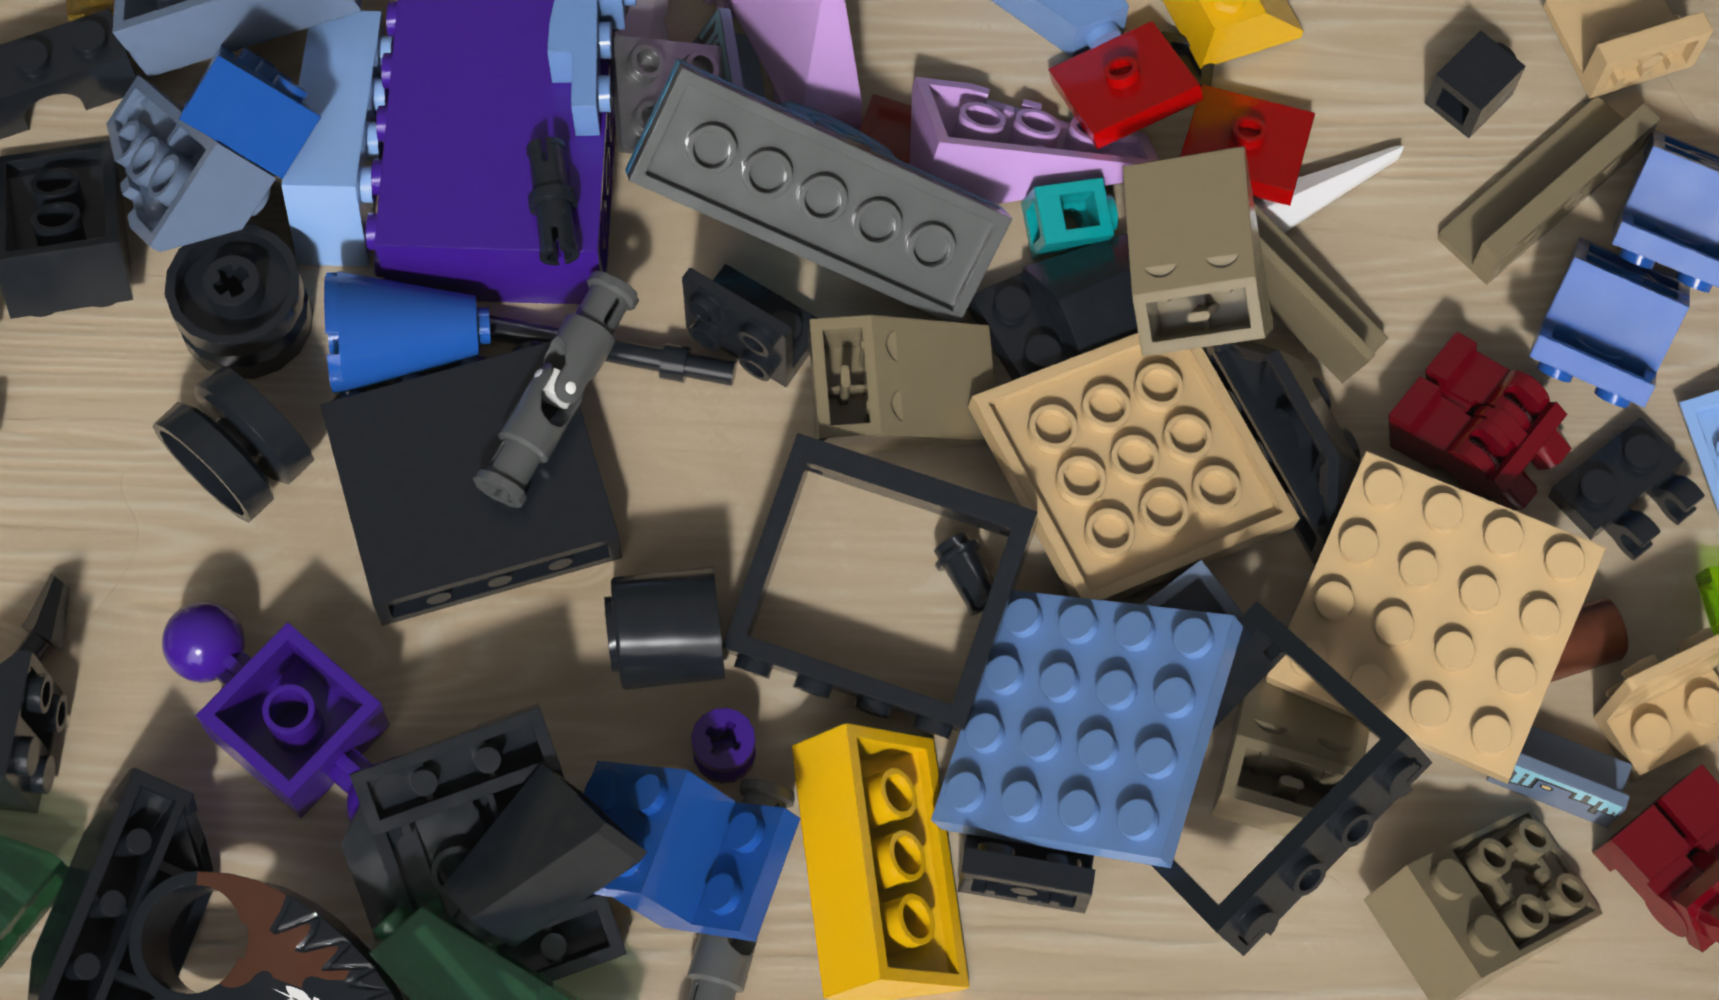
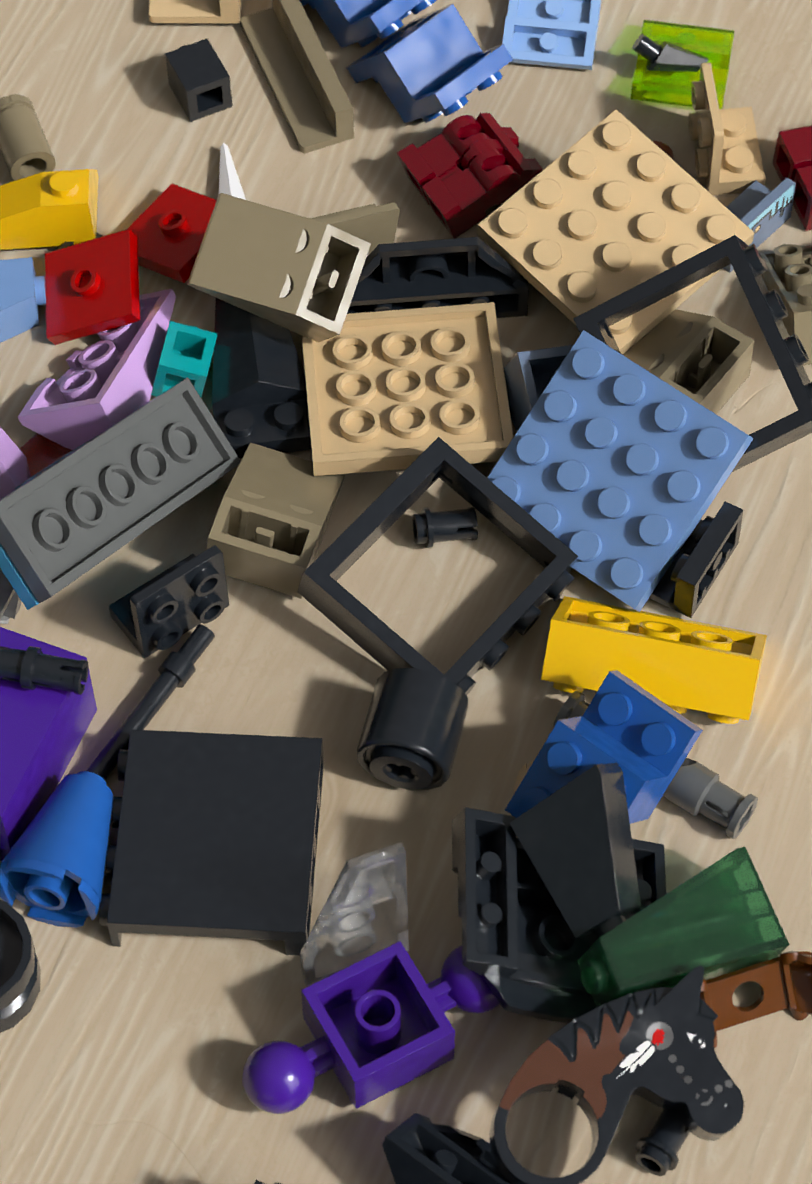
camera: 65 degrees left, 10 degrees down
(233, 442) = (114, 996): black wheel -> none
(411, 652) = (360, 915): none -> clear wedge
(567, 368) = (194, 746): dark grey piece -> none
(720, 759) = (517, 745): dark purple wheel -> none
(1619, 476) = (540, 113): black plate -> none

